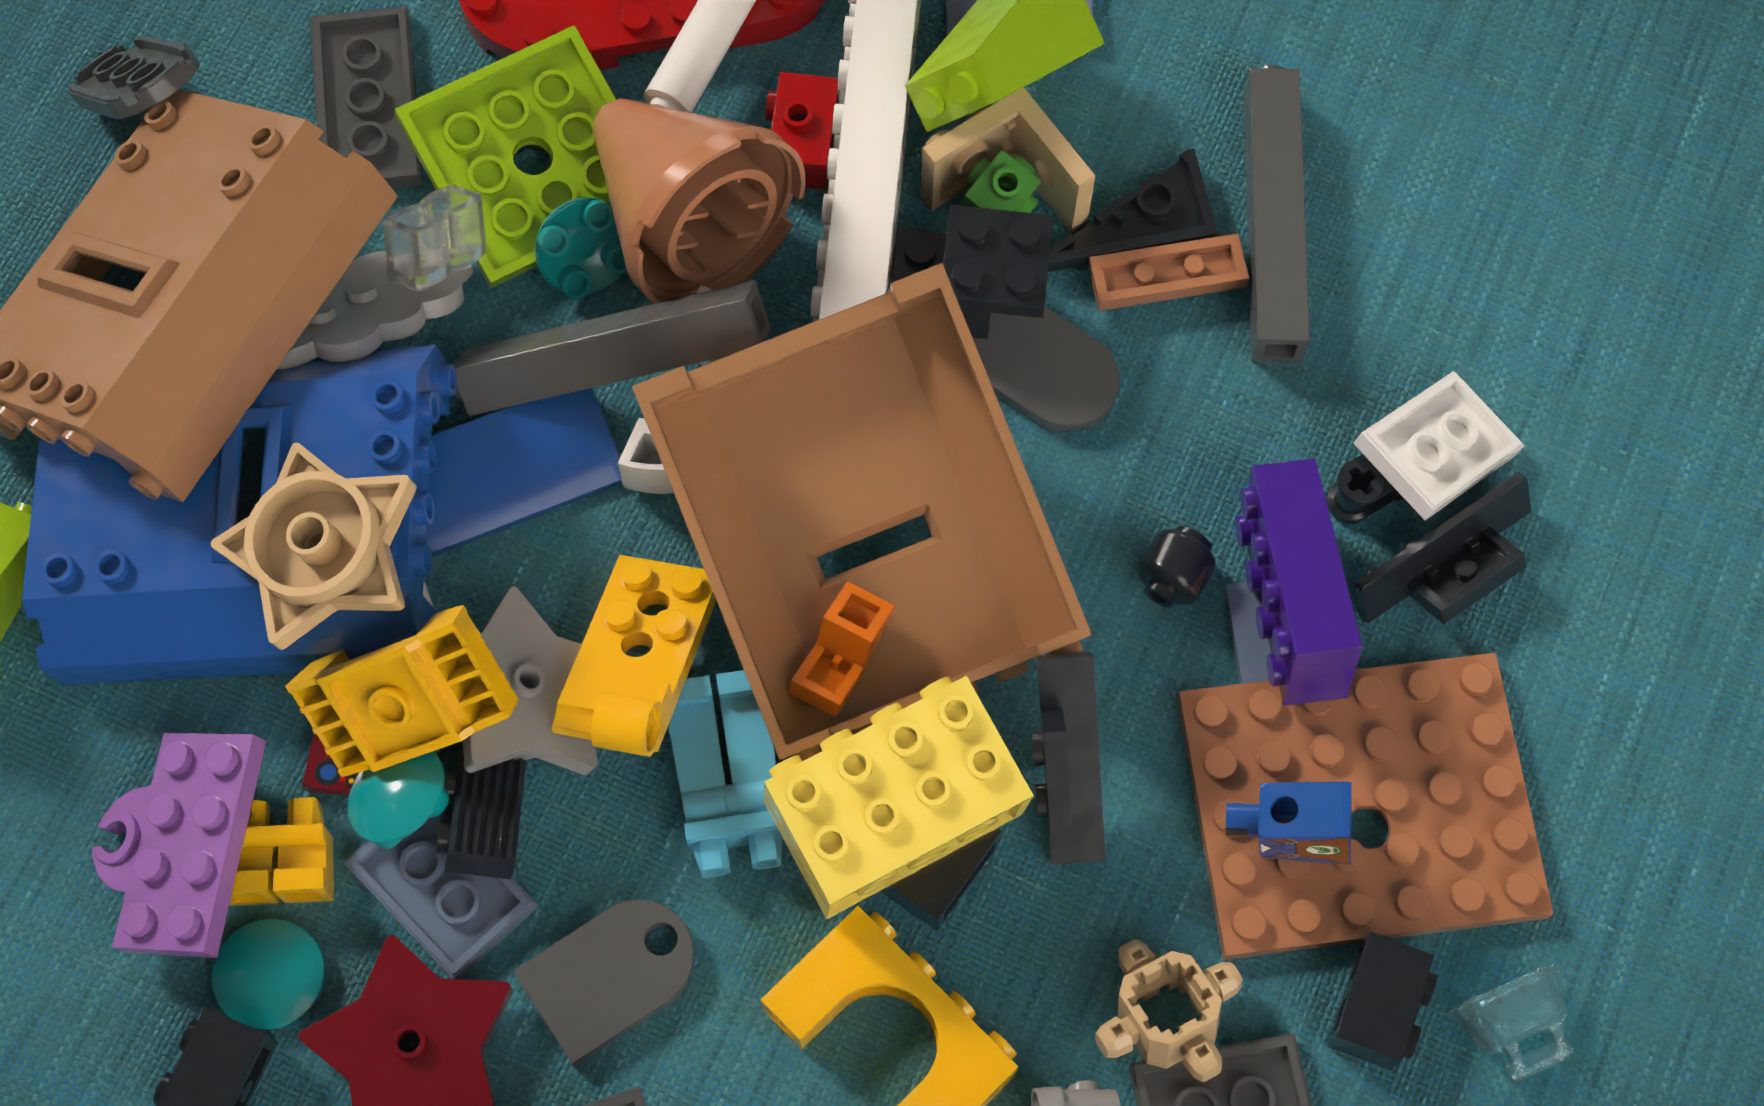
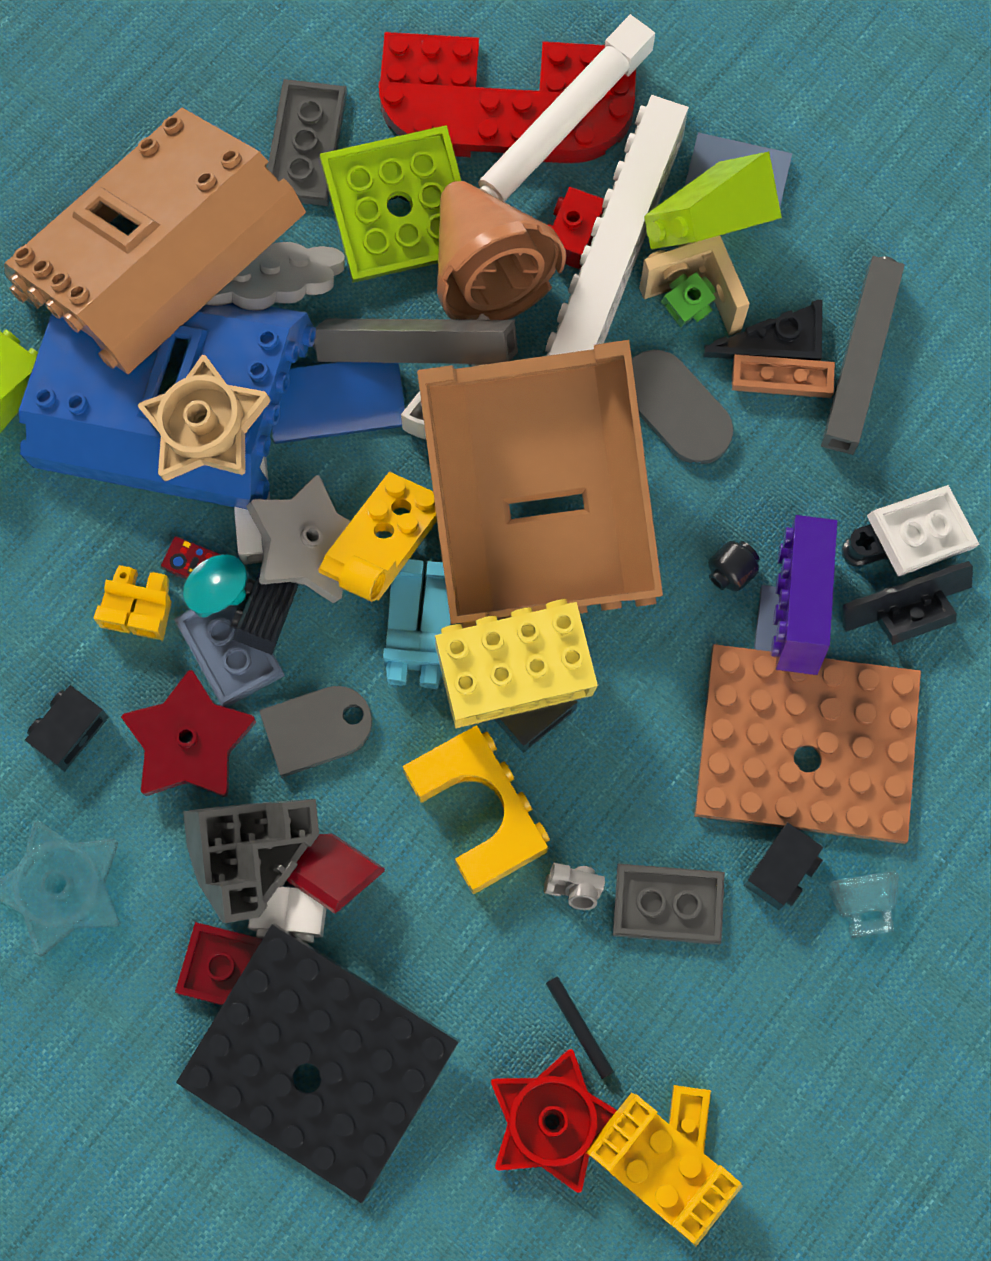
camera: 15 degrees right, 5 degrees up
(133, 80) = (162, 95): dark grey tile -> none
(181, 844) = (79, 582): medium lavender plate -> none
(268, 974) = (113, 674): teal dish -> none
(404, 695) = (233, 527): yellow plate -> none
(435, 237) = (323, 243): clear brick -> none
(580, 248) = (413, 270): teal dish -> none
(842, 649) = (509, 566): orange slope -> none
(991, 259) = (662, 343): black bracket -> none
(1070, 758) = (630, 668): black bracket -> none
(1195, 1038) = (659, 860): tan piece -> none
(1318, 823) = (775, 744): blue torso -> none

